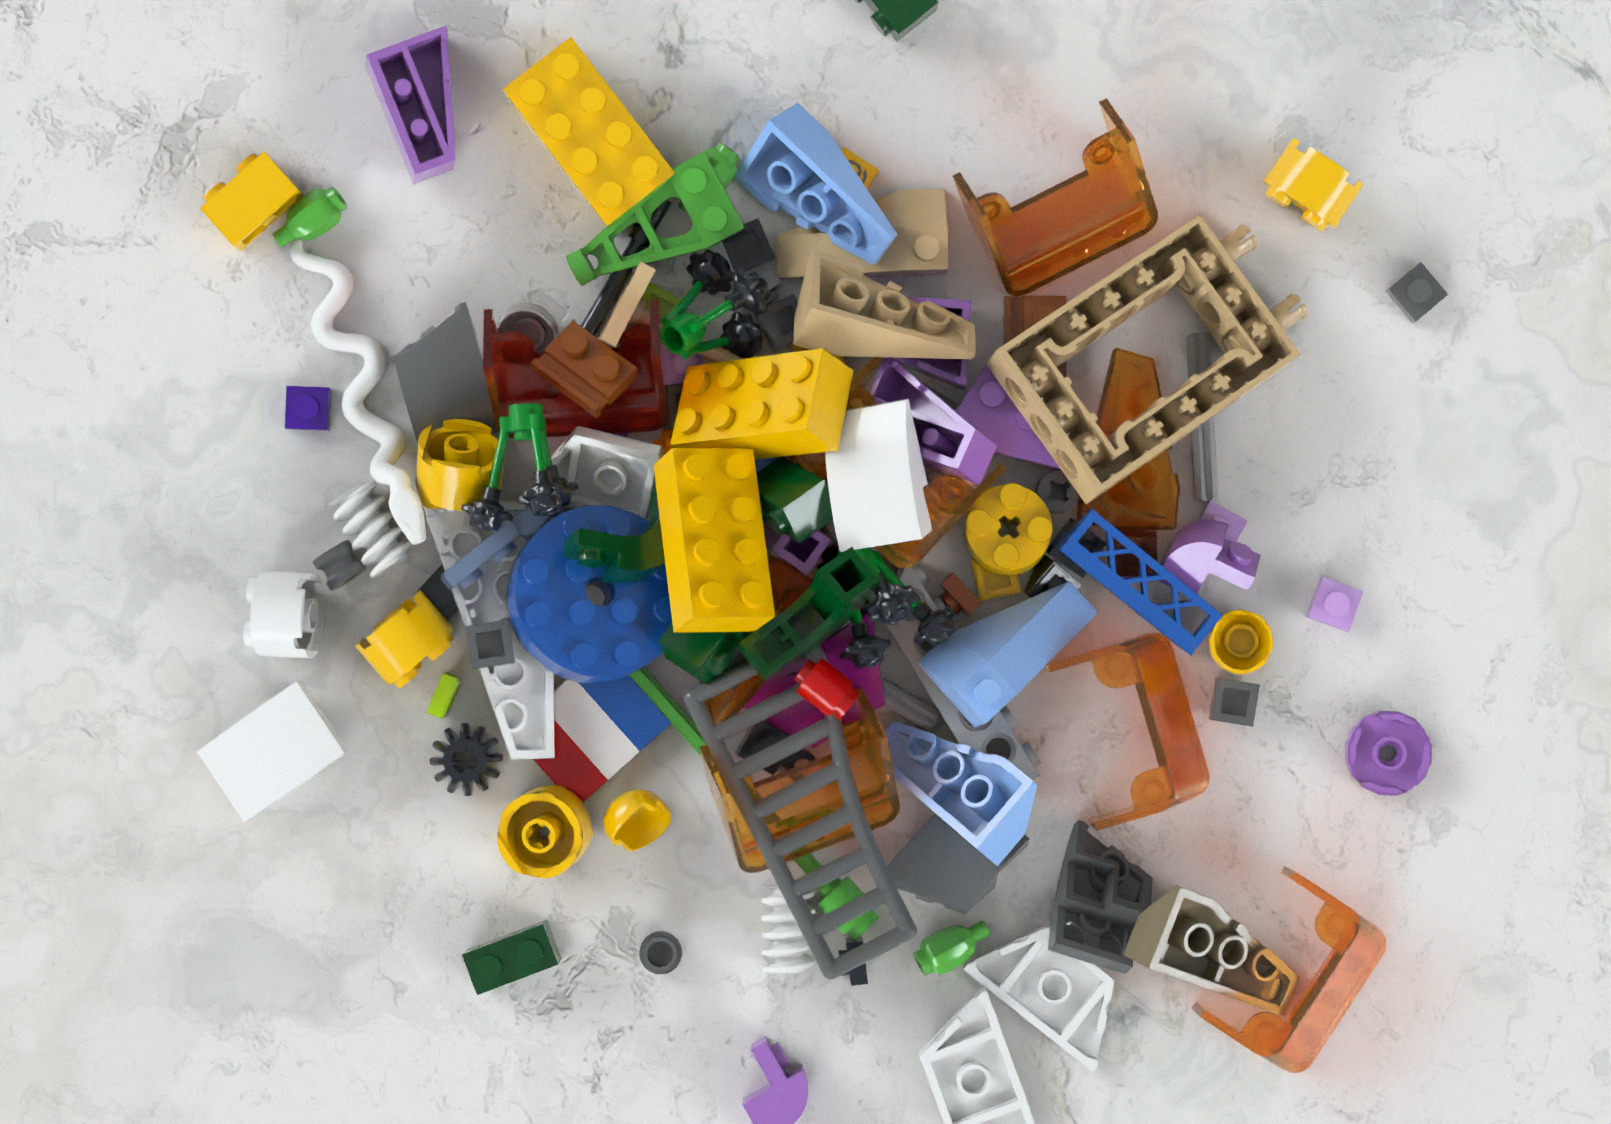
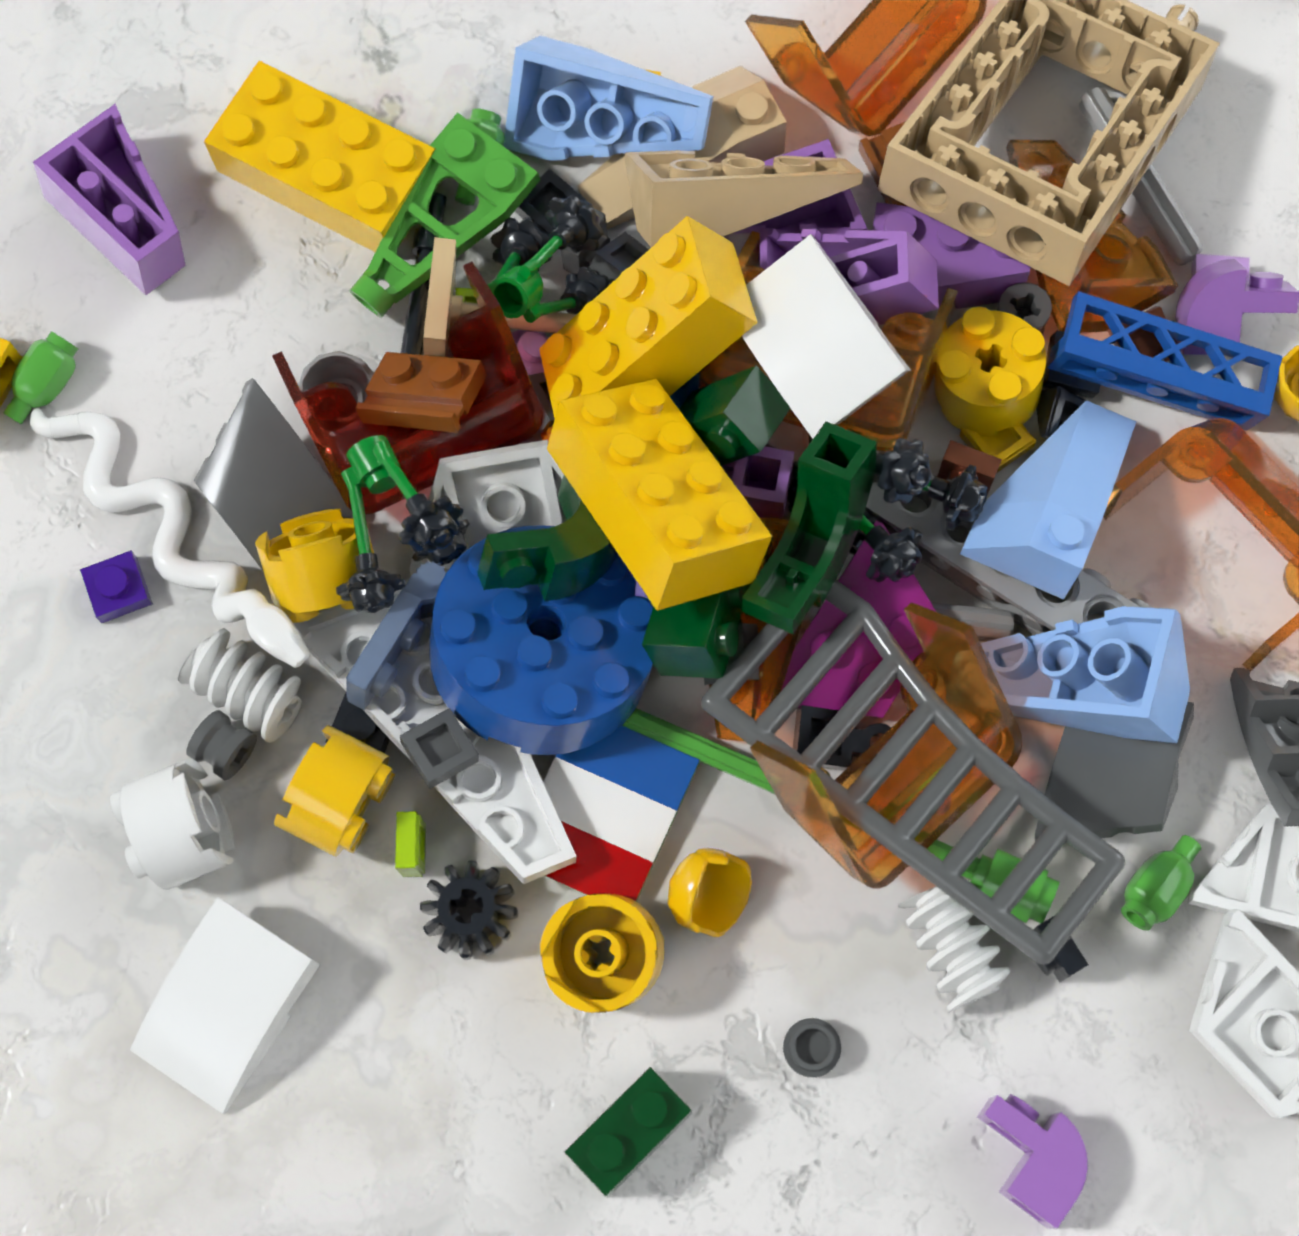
camera: 15 degrees left, 15 degrees down
(826, 688) = (870, 613): red brick -> none

